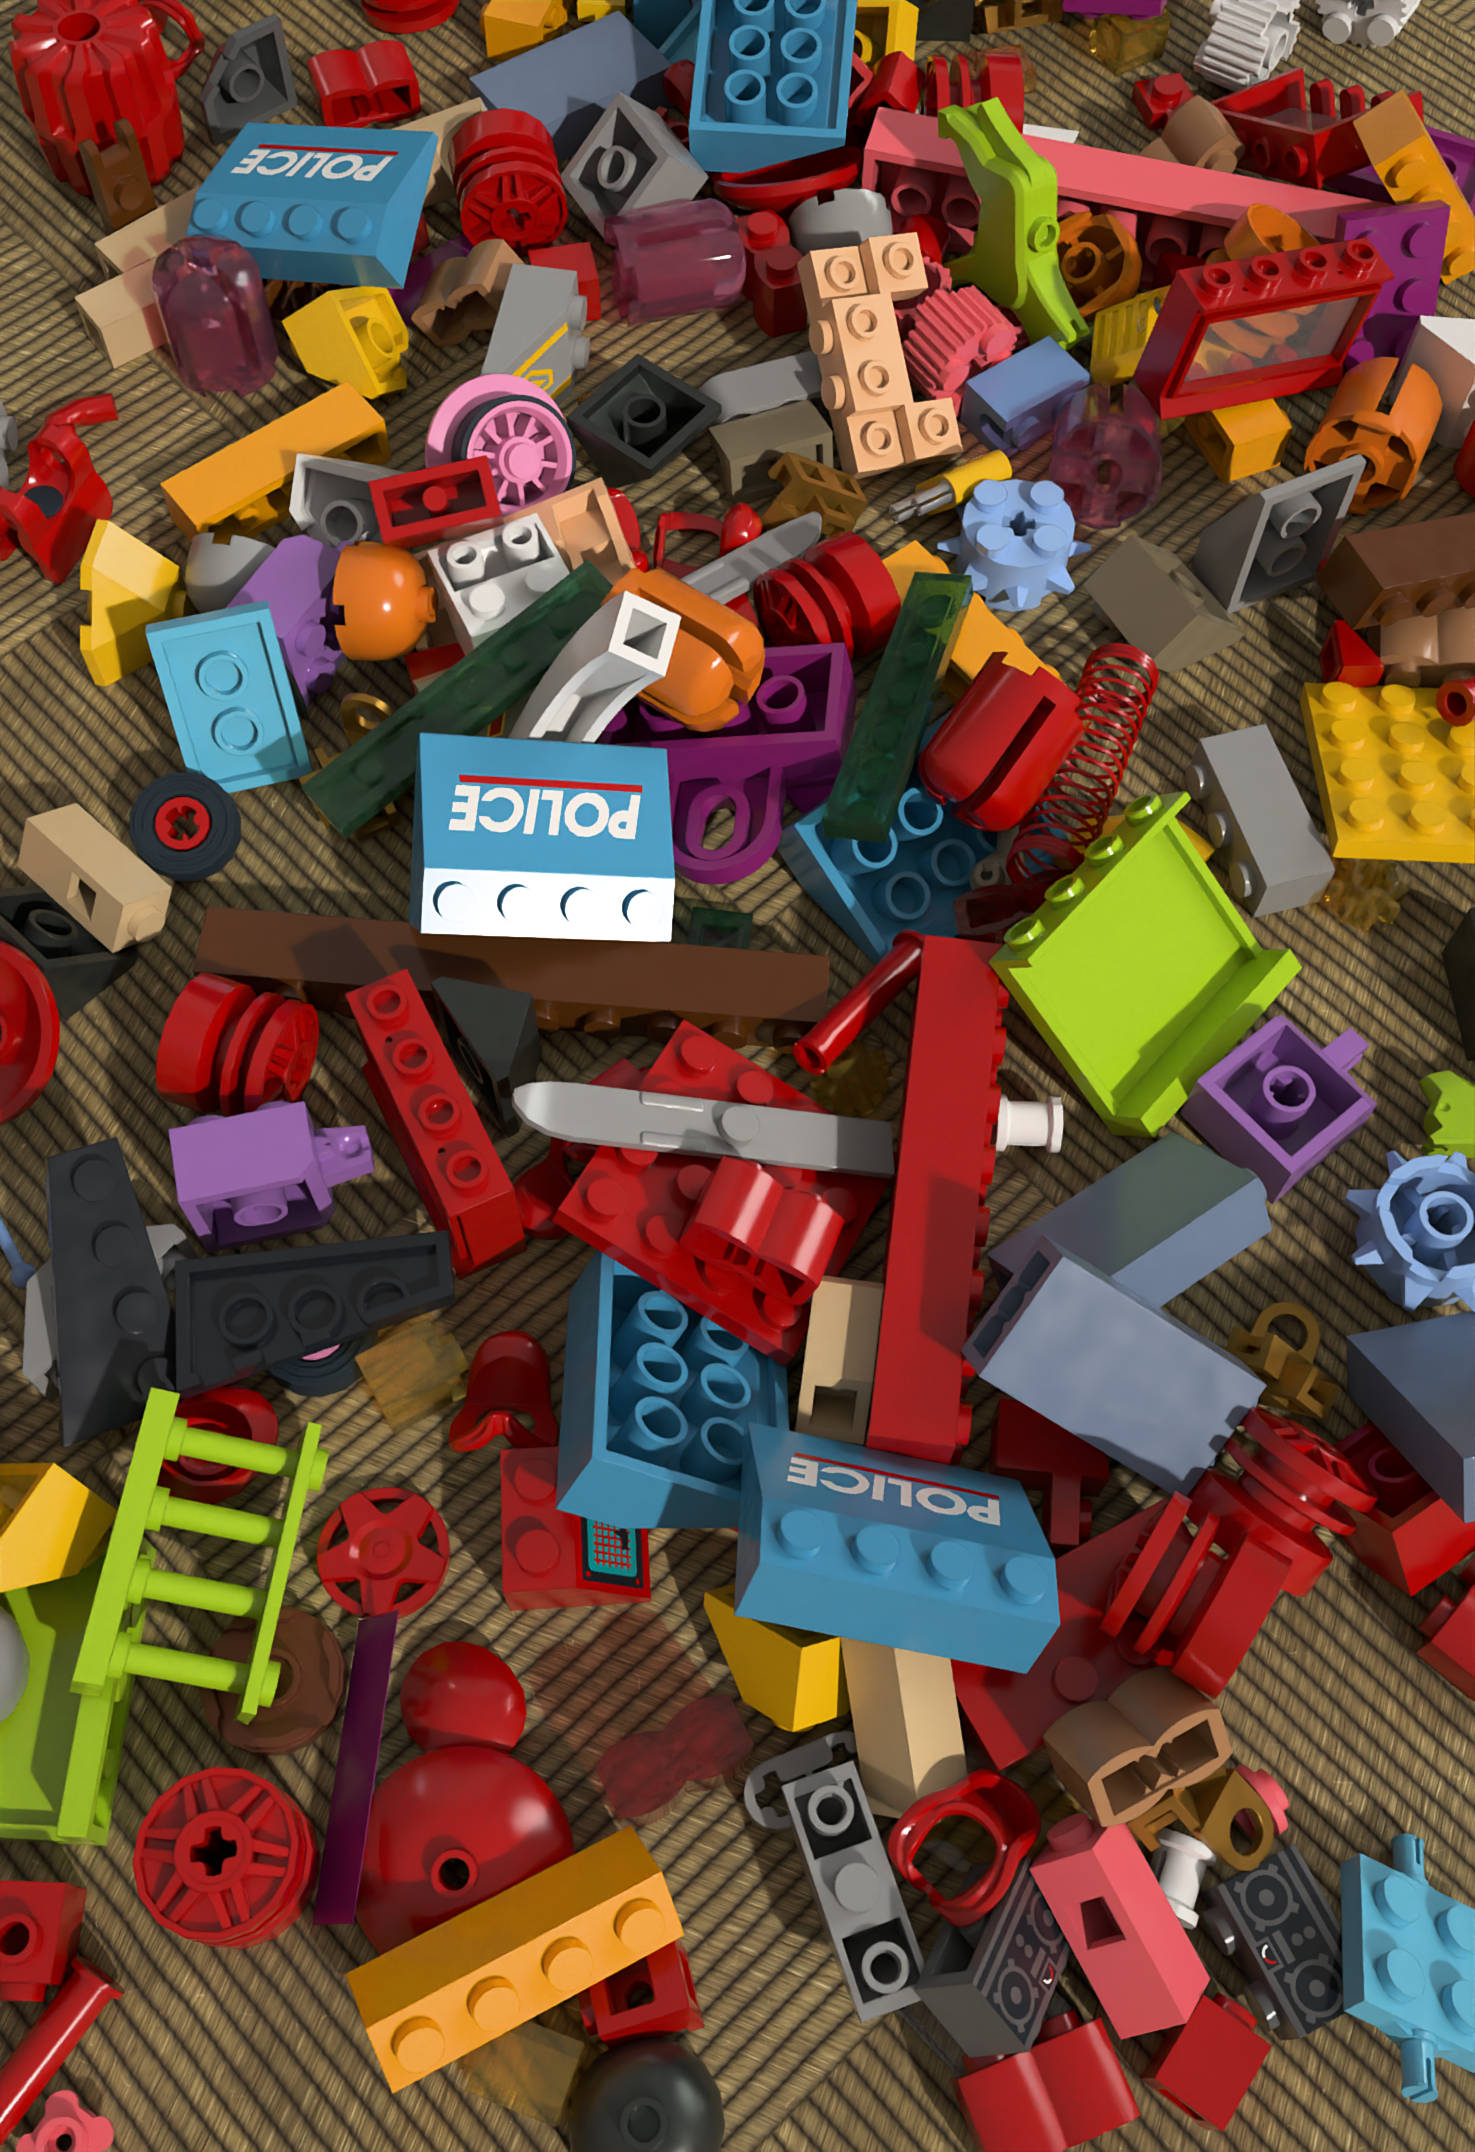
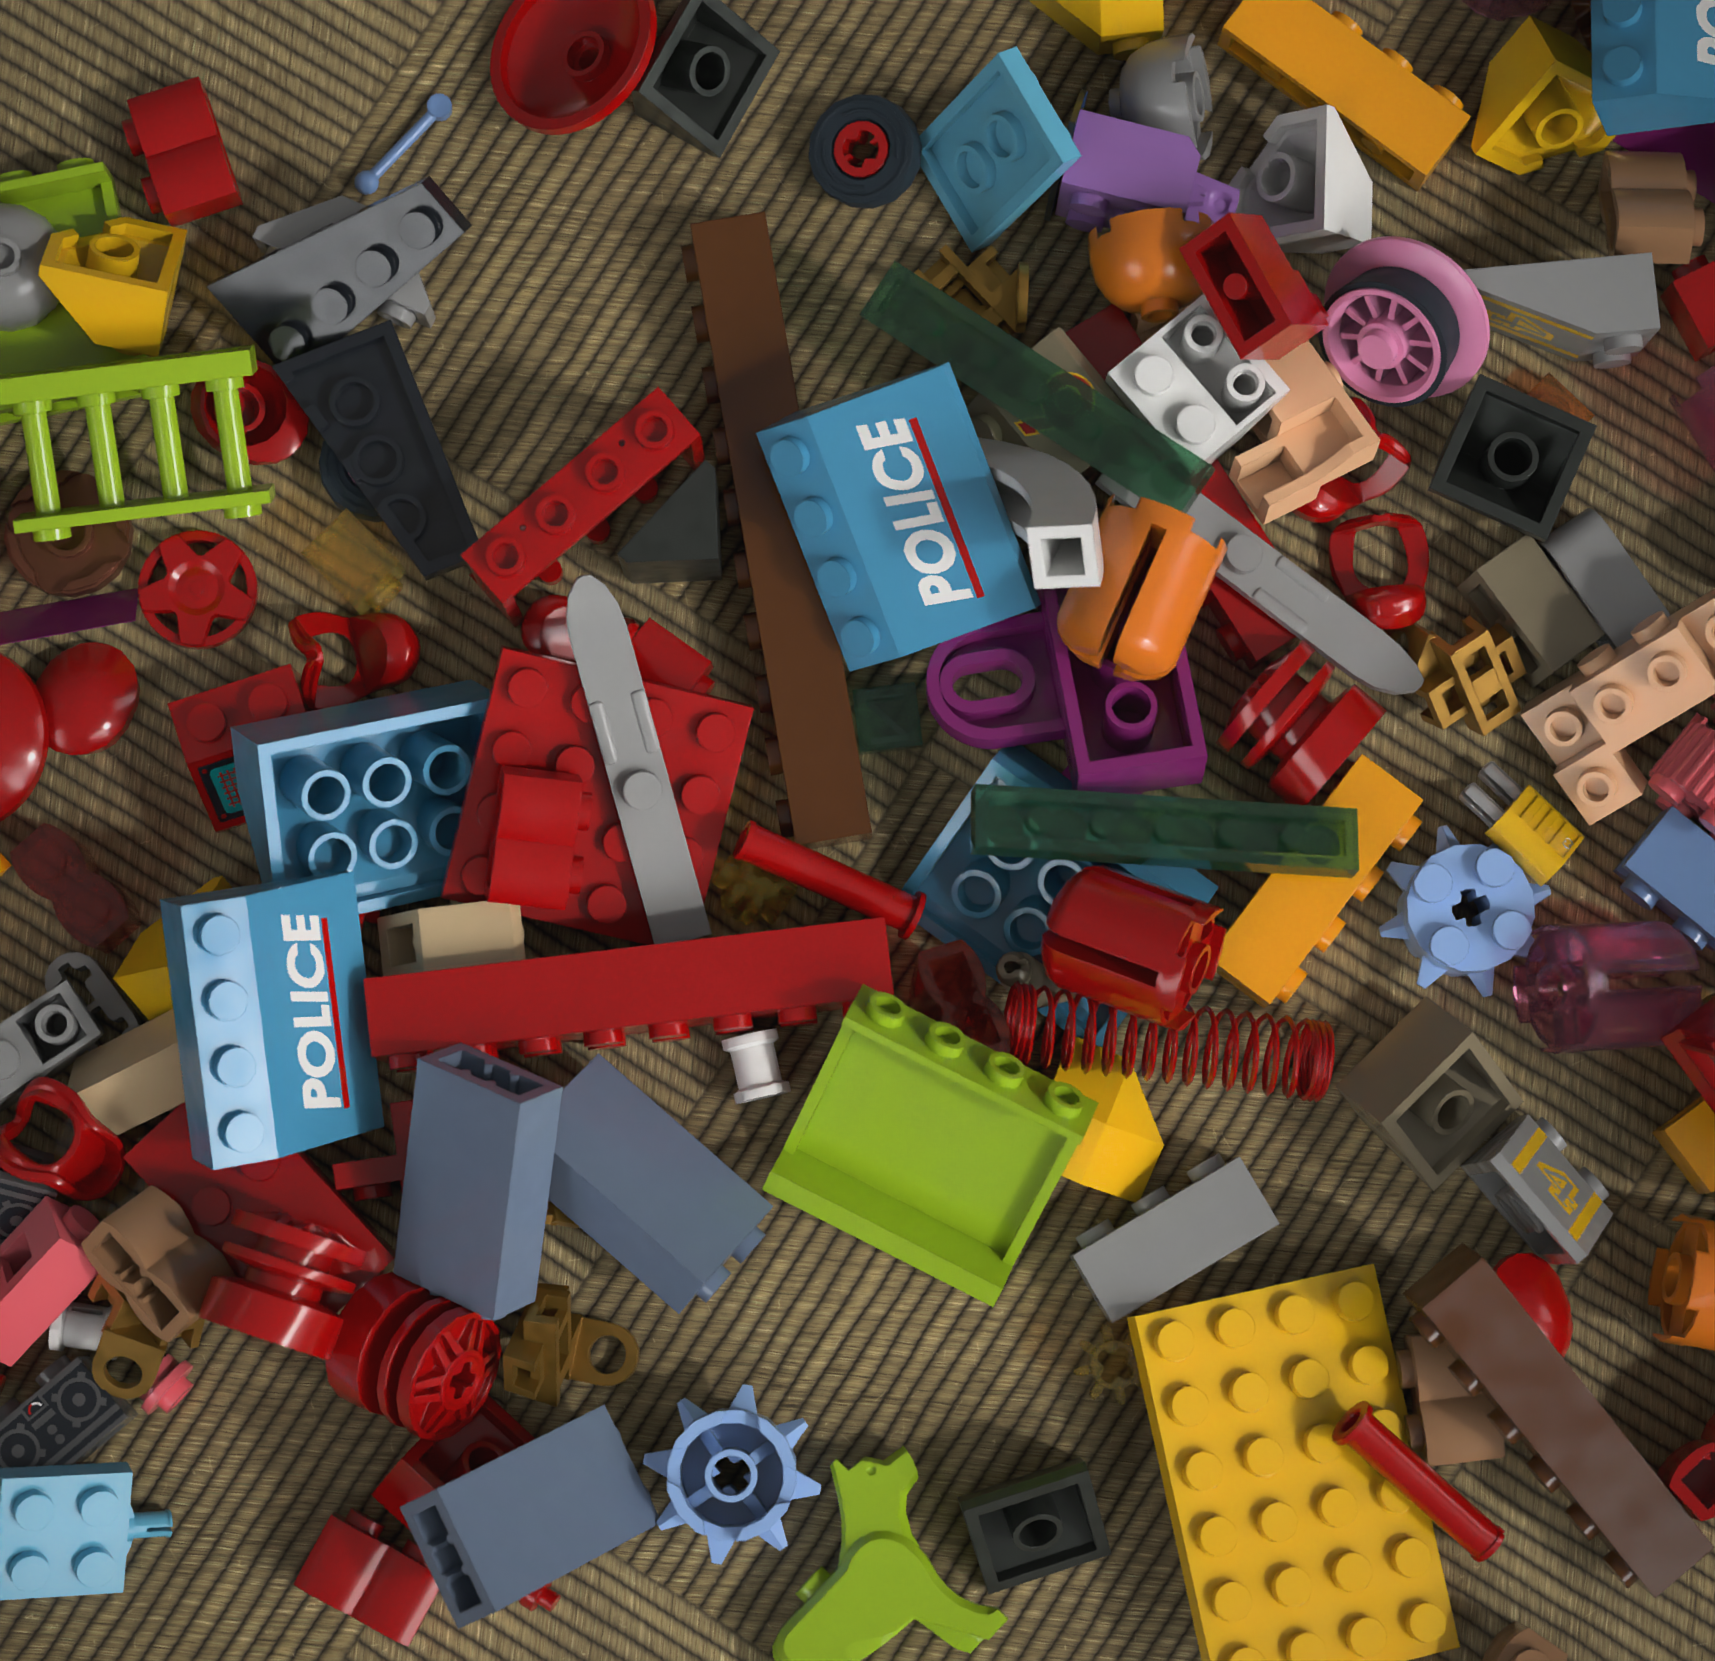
camera: 75 degrees right, 20 degrees up
(94, 877) = (777, 88): tan brick -> none
(235, 1047) = (616, 292): red wheel -> none
(263, 1173) = (498, 368): medium lavender hinge -> none
(1281, 1103) = (873, 1300): medium lavender hinge -> none
(1349, 658) = (1395, 1311): red slope -> none

